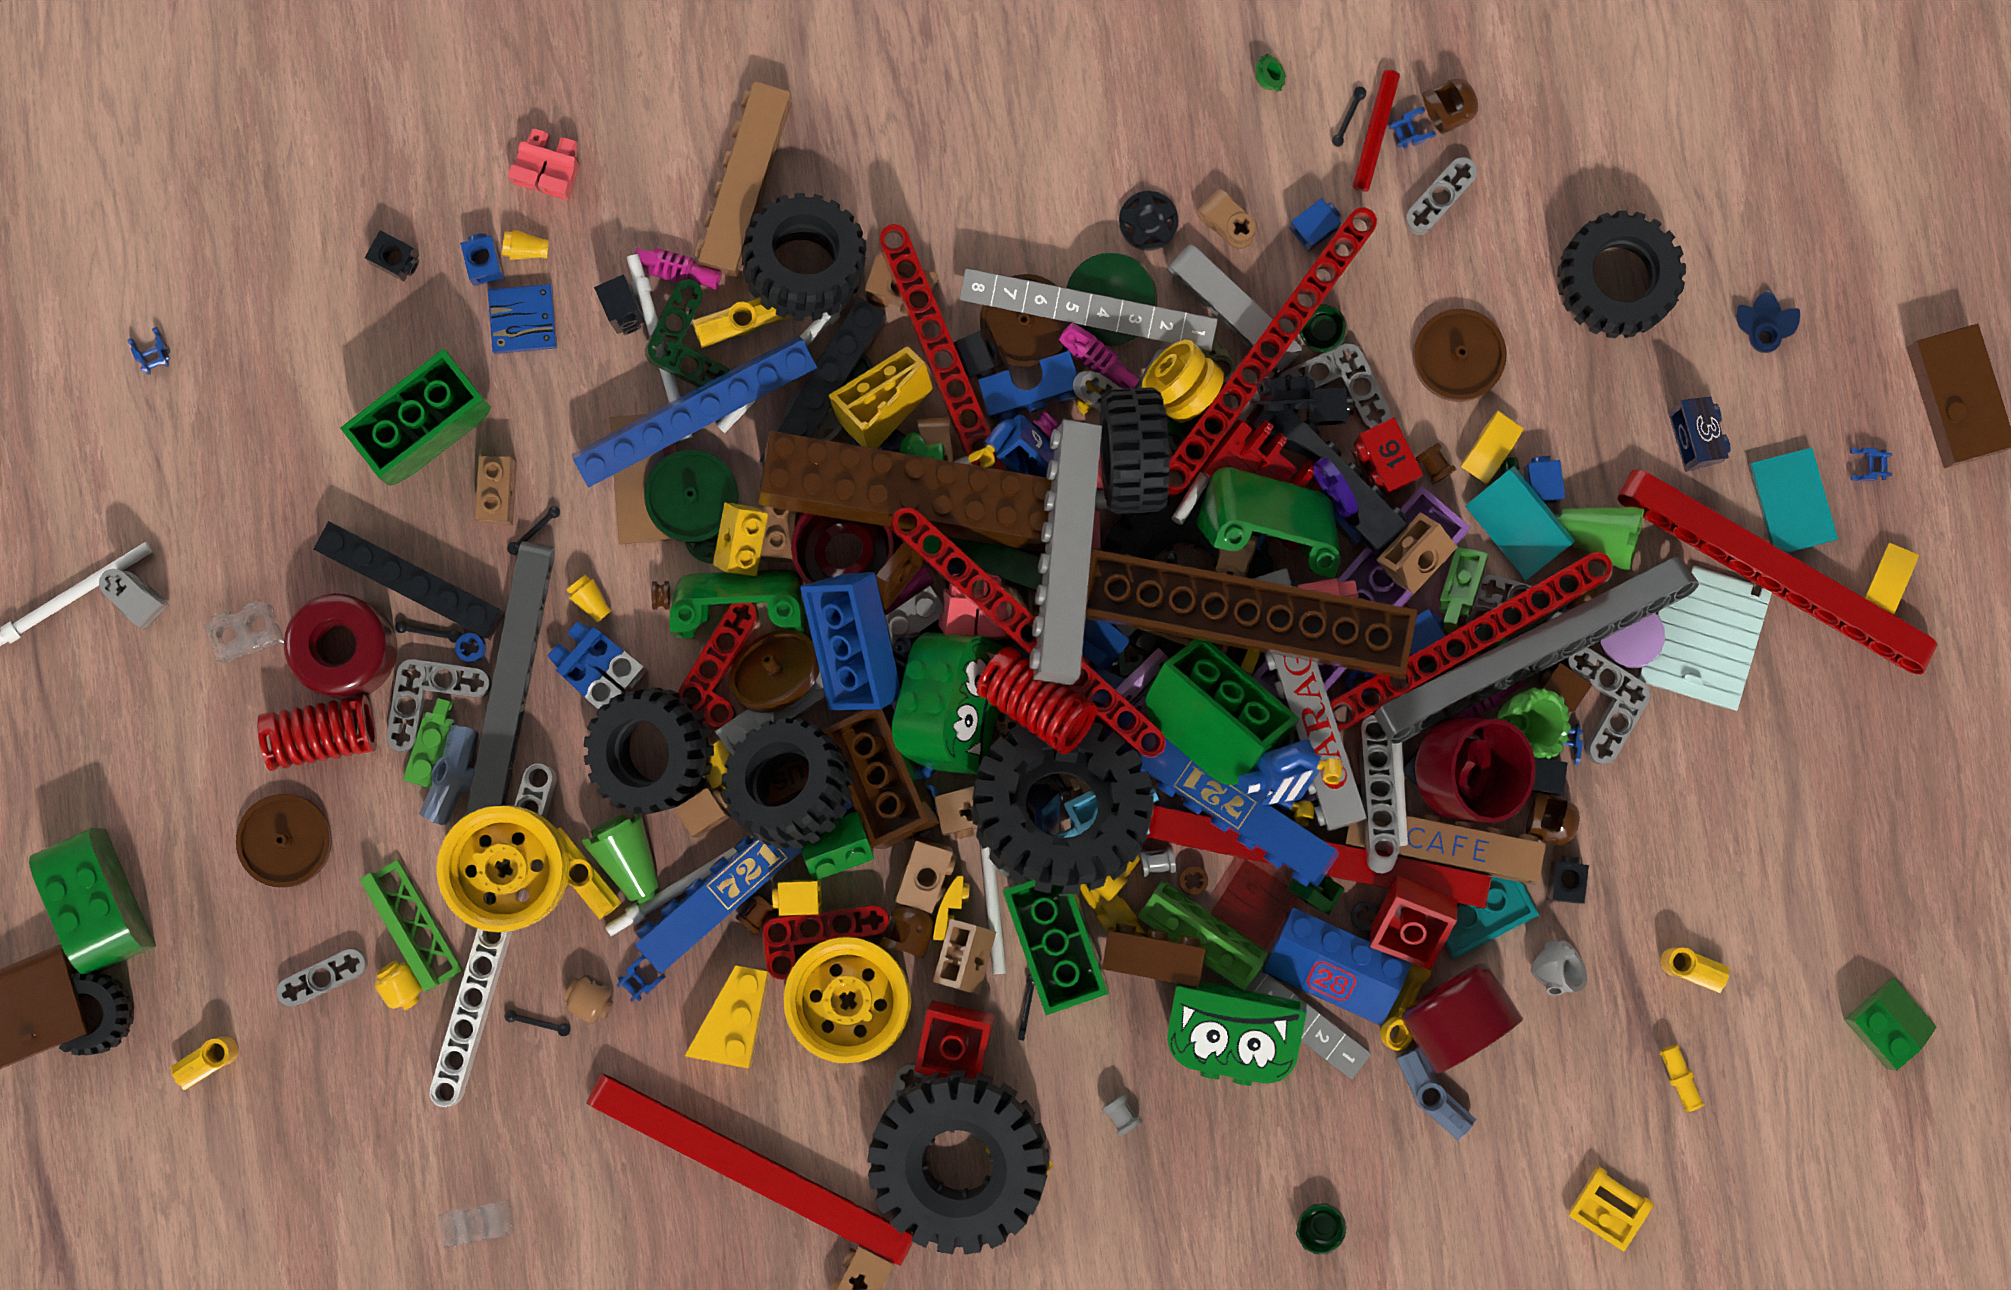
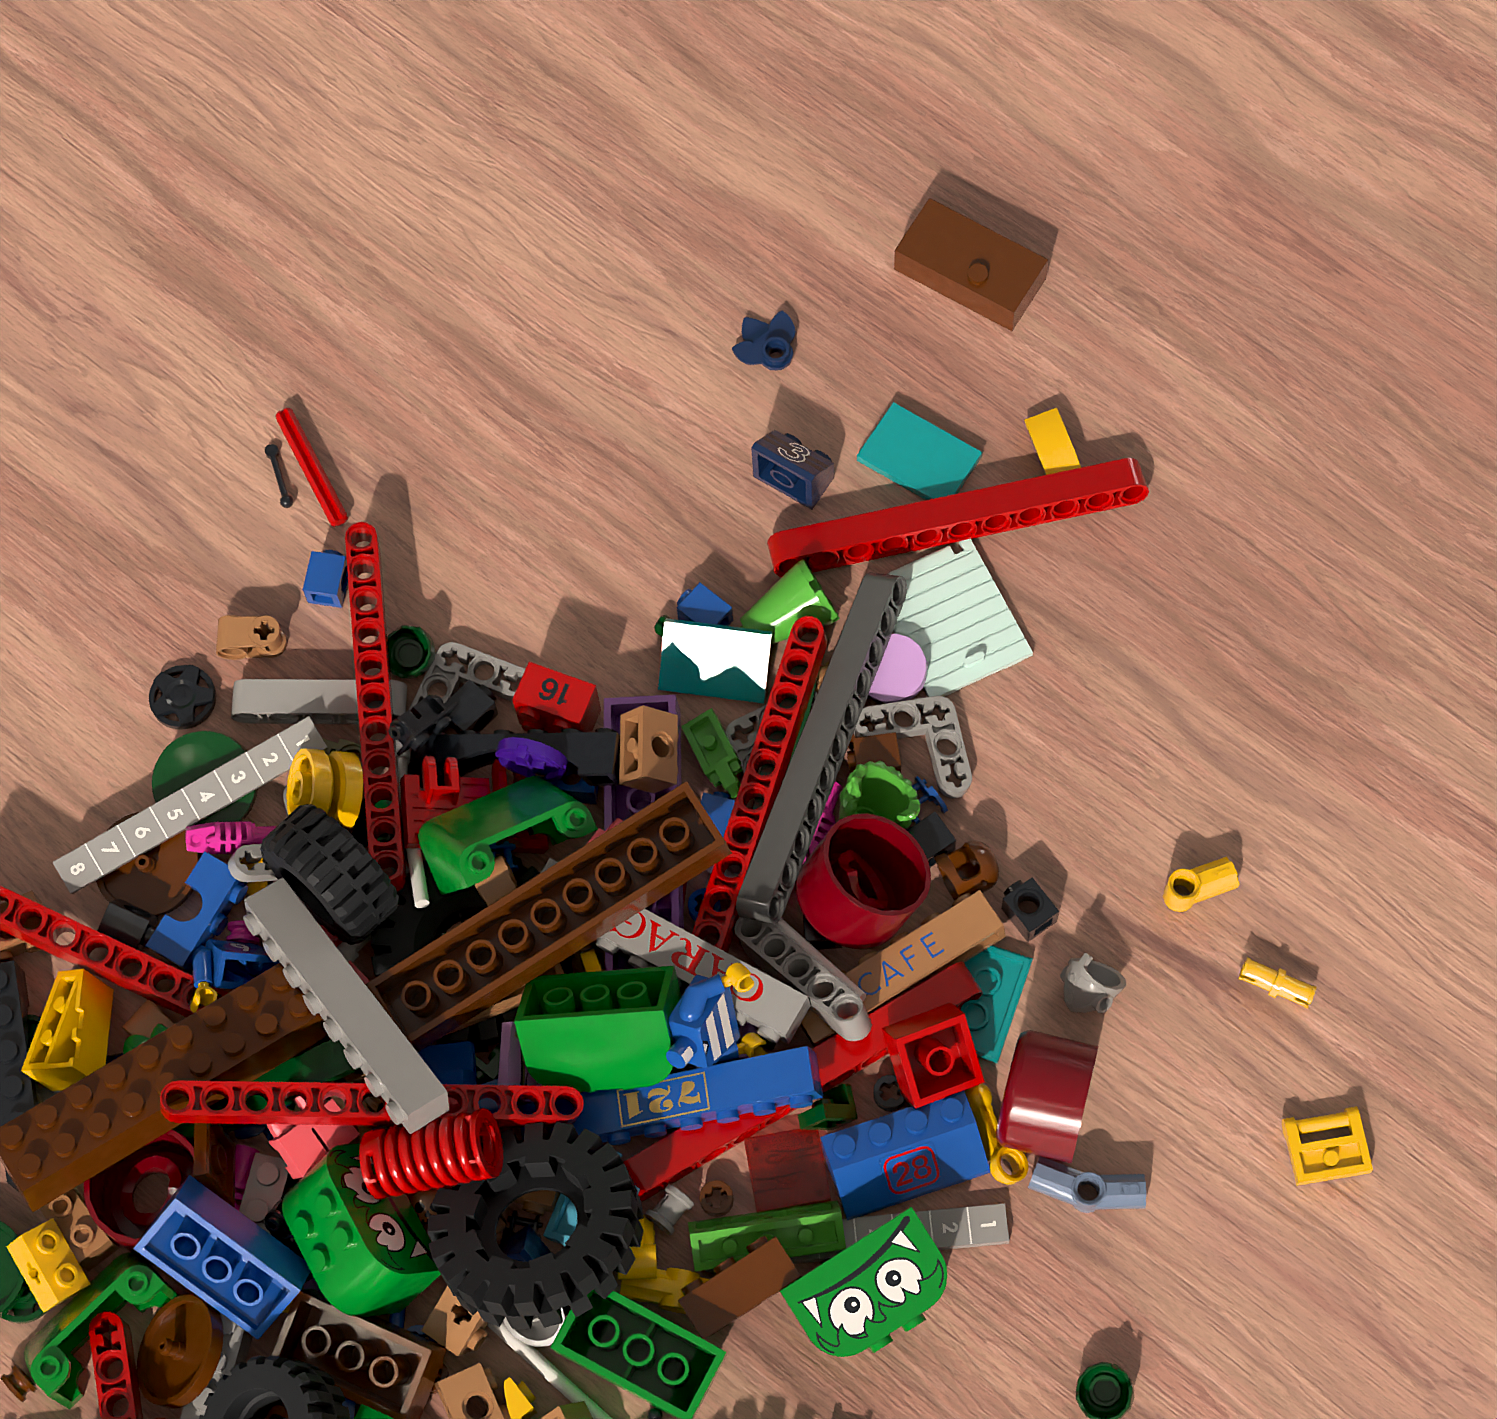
camera: 40 degrees left, 15 degrees down
(1270, 73) = (181, 497): green animal -> none
(1415, 139) = (349, 446): blue piece -> none
(1435, 463) = (603, 676): reddish brown bush -> none
(1449, 173) = (420, 483): light grey beam -> none
(1451, 105) = (354, 394): reddish brown helmet -> none
(1459, 355) = (542, 578): reddish brown piece -> none
(1492, 447) = (636, 623): yellow slope -> none
(1650, 245) = (609, 362): black tyre -> none
(1872, 453) = (944, 367): blue piece -> none
(1891, 1025) = (1399, 786): green slope -> none

